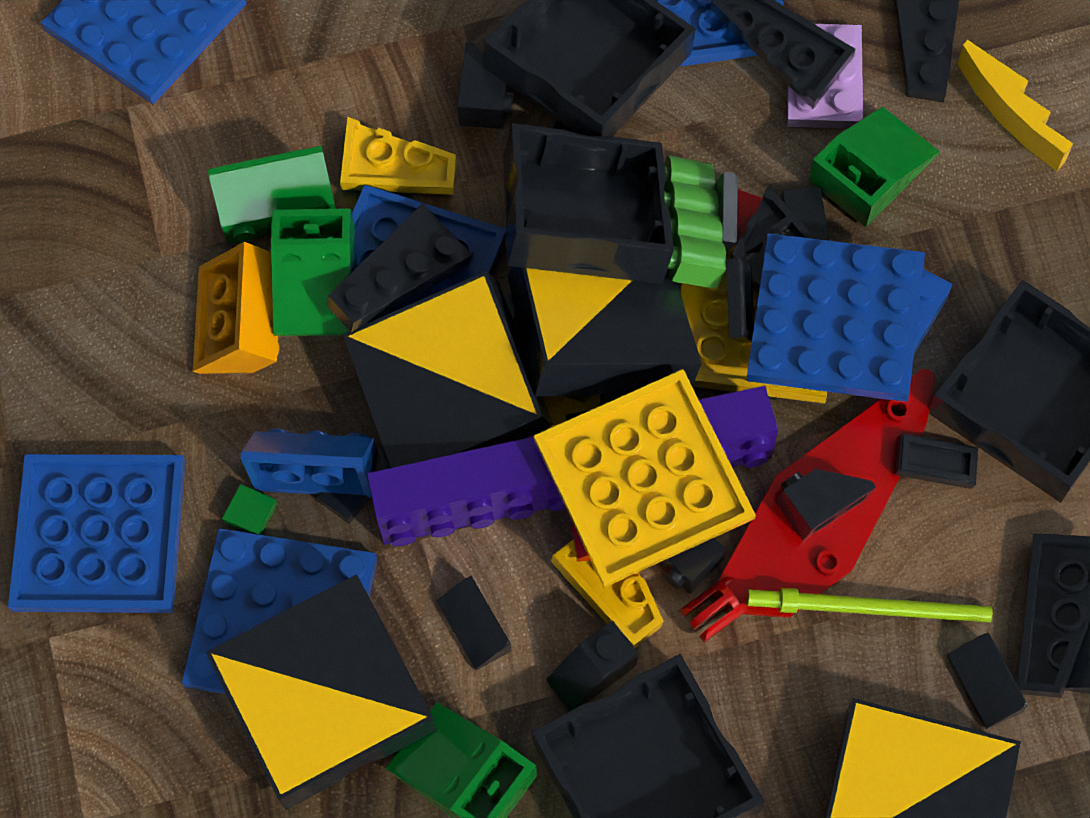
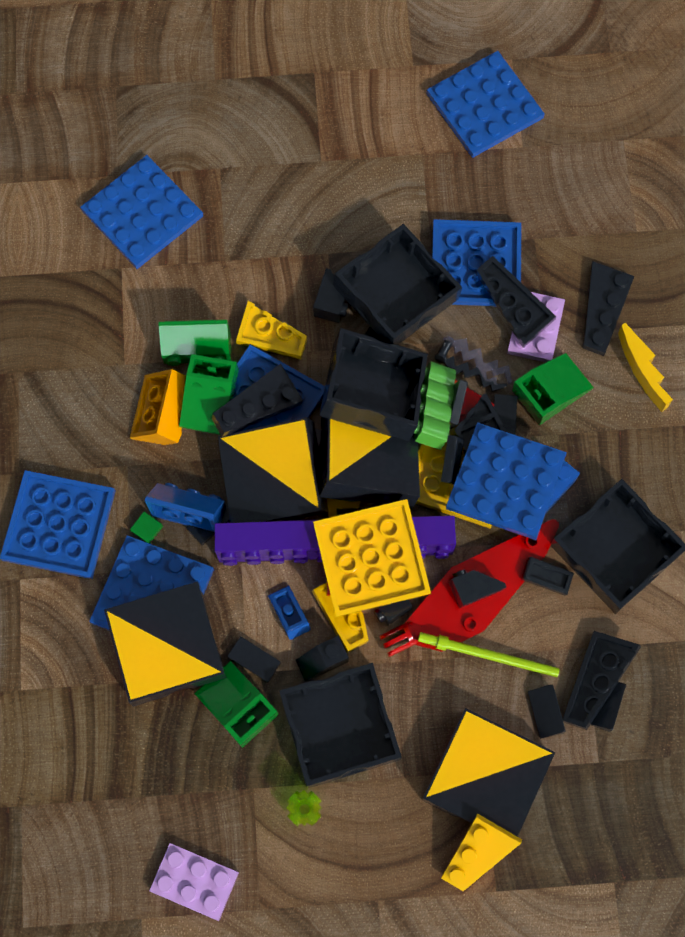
camera: 10 degrees right, 5 degrees up
(474, 623) = (260, 619): black slope -> none
(476, 692) = (254, 659): none -> black tile
(520, 604) = (289, 612): none -> blue slope
(751, 154) = (481, 367): none -> piece

